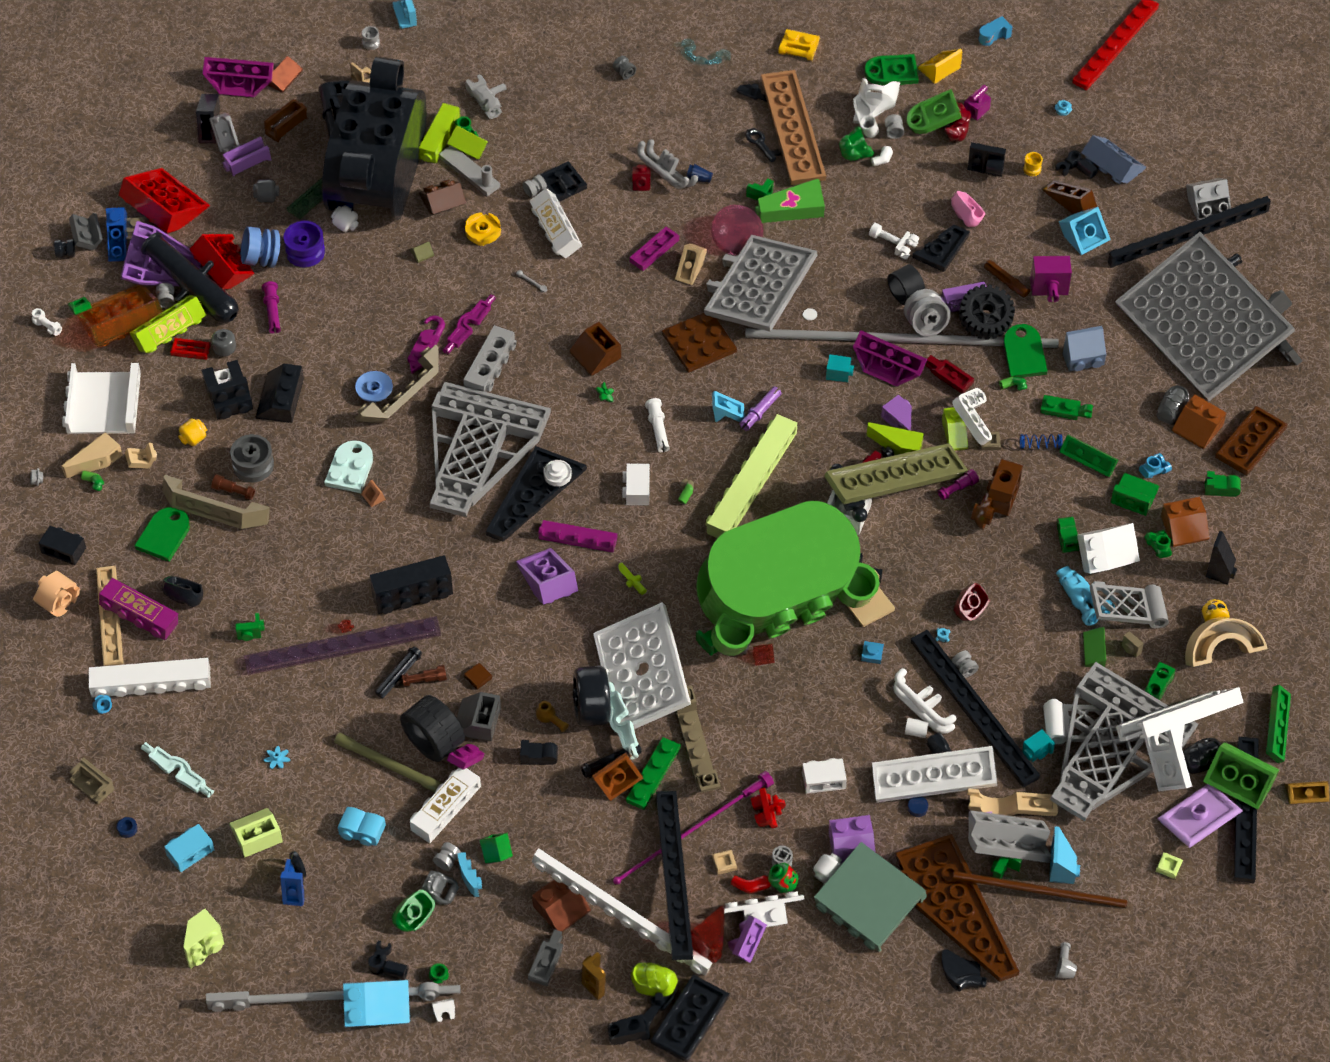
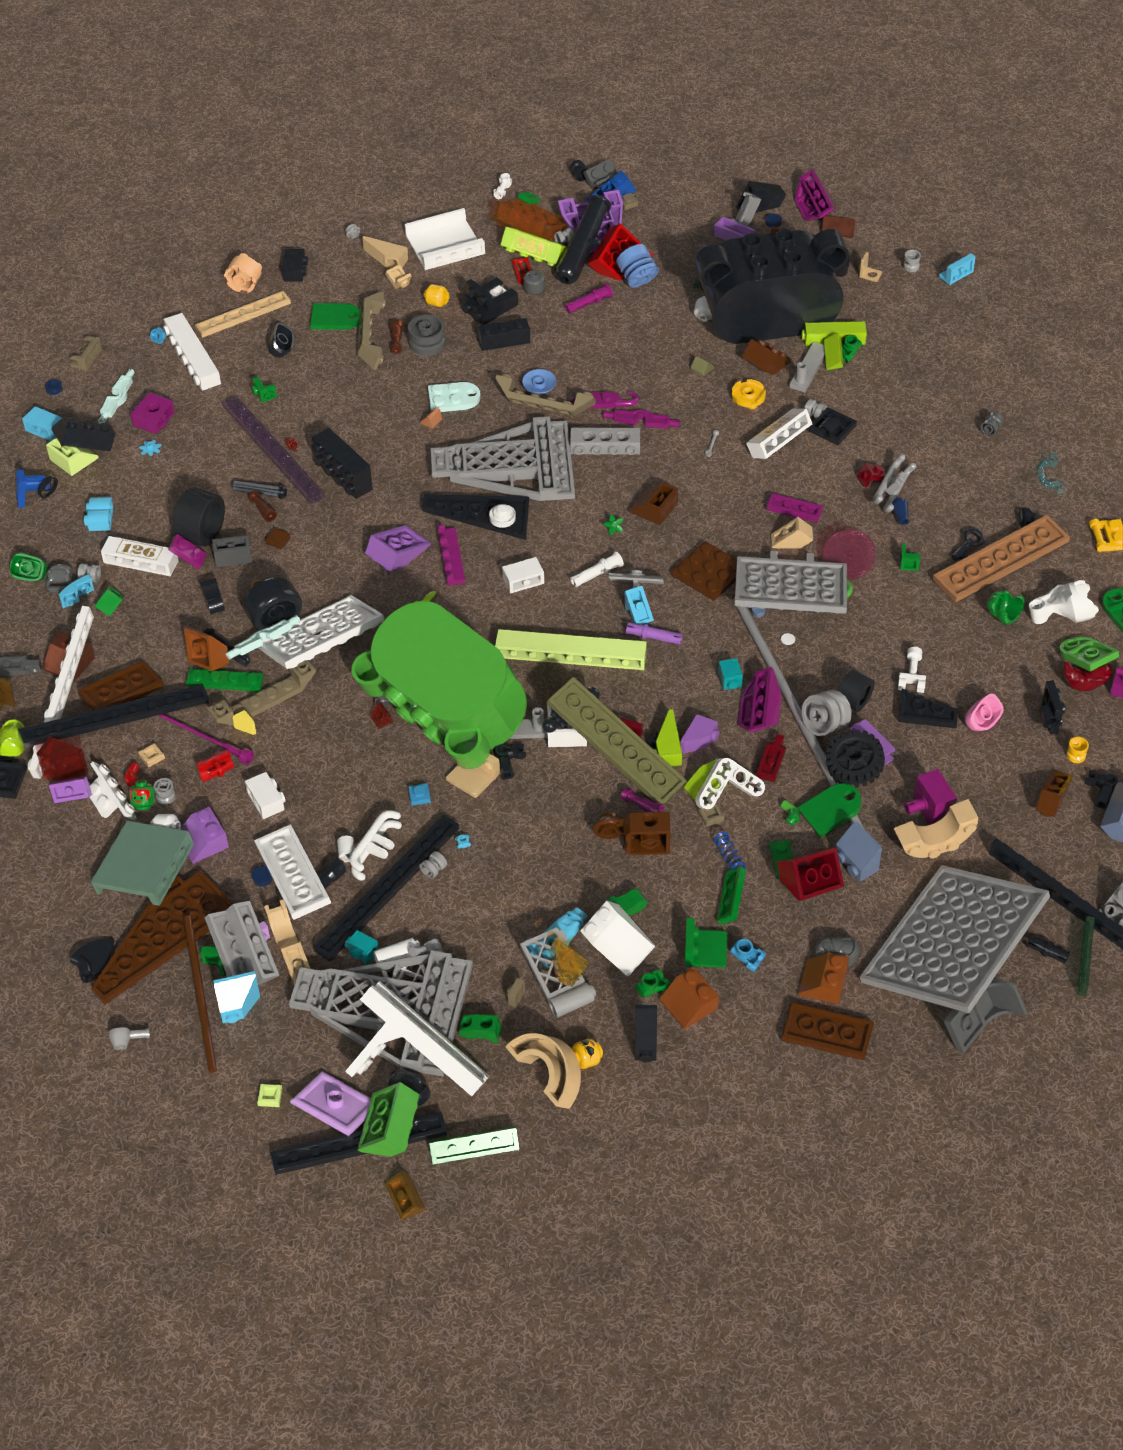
camera: 70 degrees right, 5 degrees down
(95, 478) = (366, 263): arm -> none
(138, 609) = (250, 322): magenta brick -> none
(162, 199) = (662, 204): red slope -> none
(232, 748) = (152, 413): none -> magenta brick
(241, 120) = (773, 220): none -> dark blue tile
(244, 806) = (84, 434): none -> black slope
(304, 243) = (661, 292): dark purple wheel -> none
(351, 745) = (178, 483): olive piece -> none
(486, 96) = (898, 346): light grey piece -> none
(627, 865) = (121, 687): none -> reddish brown plate
(687, 486) = (540, 611): bright green arm -> none
(693, 394) = (636, 577): none -> light grey shield
(724, 767) = (244, 722): none -> light yellow slope
(793, 203) = (908, 585): bright green slope -> none
(884, 157) = (1013, 635): white arm -> none
(894, 126) = (1053, 630): light grey wheel -> none
(971, 602) = (504, 848): dark red piece -> none
(1013, 283) = (920, 768): reddish brown axle -> none
(1064, 694) = (433, 945): none -> light grey bar
(1085, 230) = (1016, 815): medium azure slope -> none
(1087, 283) = (941, 836): none -> tan brick
(1093, 388) = (811, 873): none -> dark red slope
(1094, 647) = (501, 966): bright green slope -> none
(1132, 589) = (567, 963): none -> clear yellow slope
(1222, 485) = (754, 1017): green leg -> none
(1243, 244) = (1085, 960): none -> clear green tile

